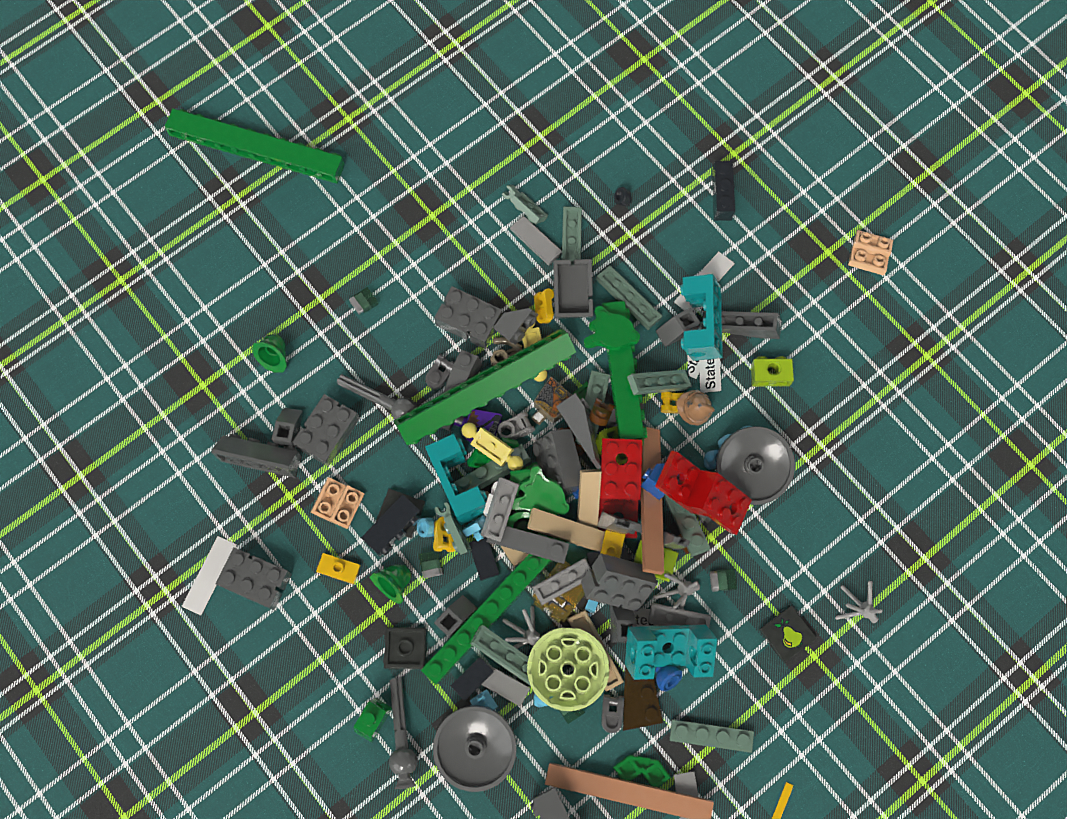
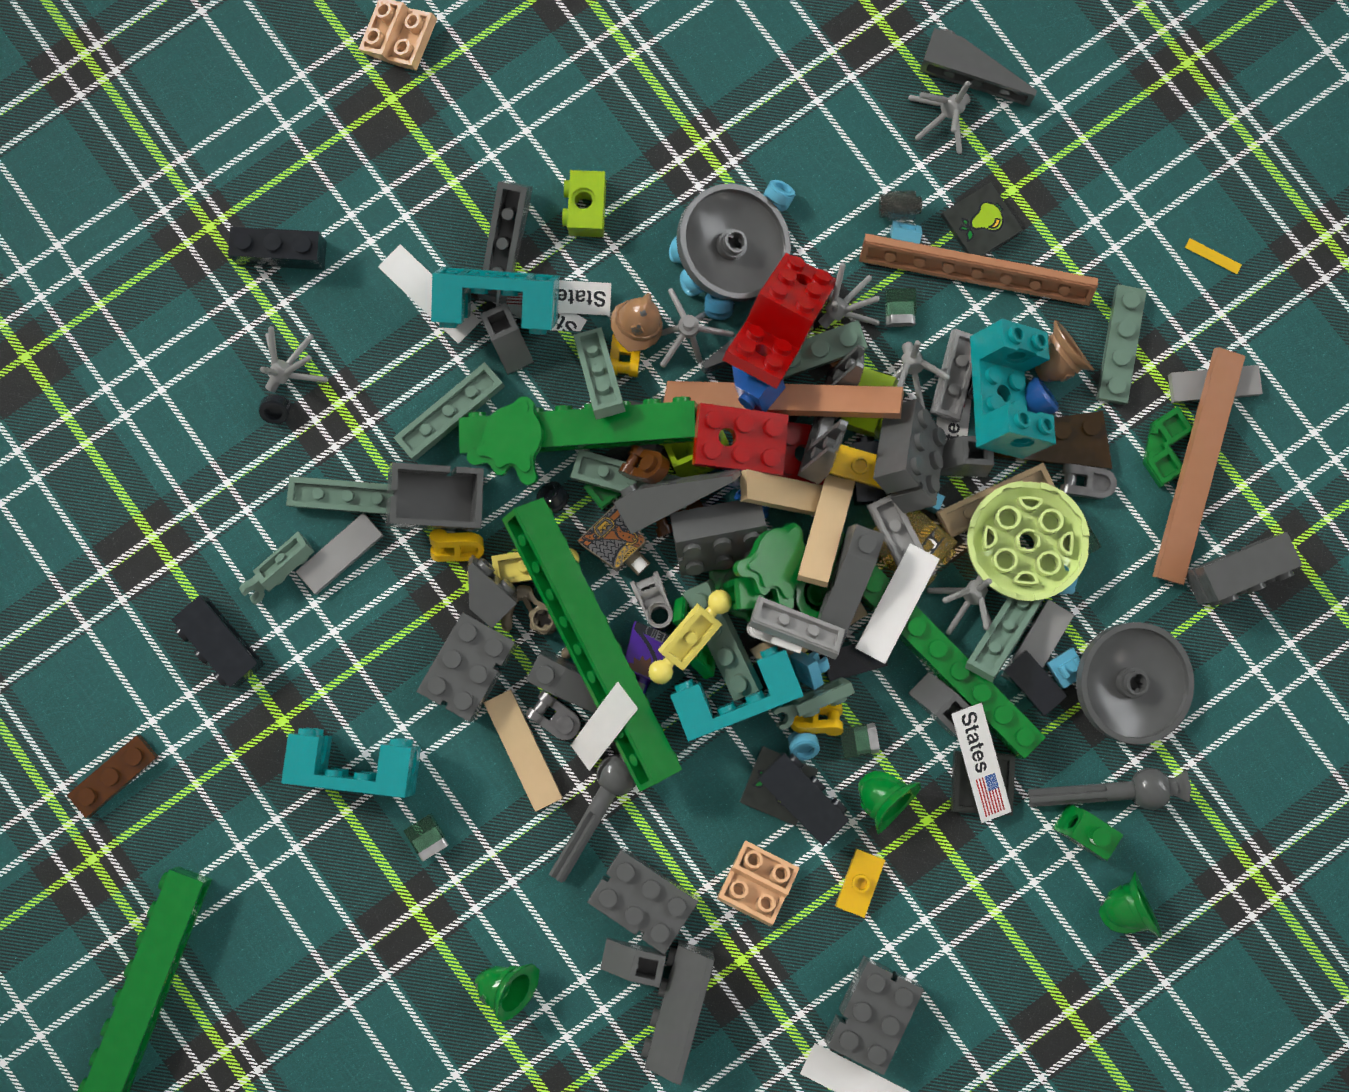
camera: 85 degrees left, 10 degrees up
(322, 751) = (1128, 909): none -> green piece
(396, 125) = (112, 776): none -> reddish brown plate
(410, 229) = (308, 763): none -> teal plate
(417, 641) = (981, 762): none -> white sticker
(418, 355) = (523, 750): none -> tan tile
(433, 396) = (604, 726): none -> white sticker
(477, 175) = (217, 642): none -> black brick
(520, 579) = (897, 603): none -> white sticker
(578, 361) = (554, 495): none -> black tile
(647, 199) = (282, 370): none -> light grey plant
(694, 438) = (688, 328): none -> light grey plant
(699, 692) = (1064, 357): none -> medium nougat piece
(718, 538) = (839, 307): none -> light grey plant
(753, 632) = (978, 269): none -> nougat tile
(774, 580) = (906, 232): none -> medium azure tile
(792, 495) = (780, 193): none -> medium azure tile
(793, 576) = (899, 205): none -> clear smoke brick
(899, 613) = (960, 61): none -> dark grey slope

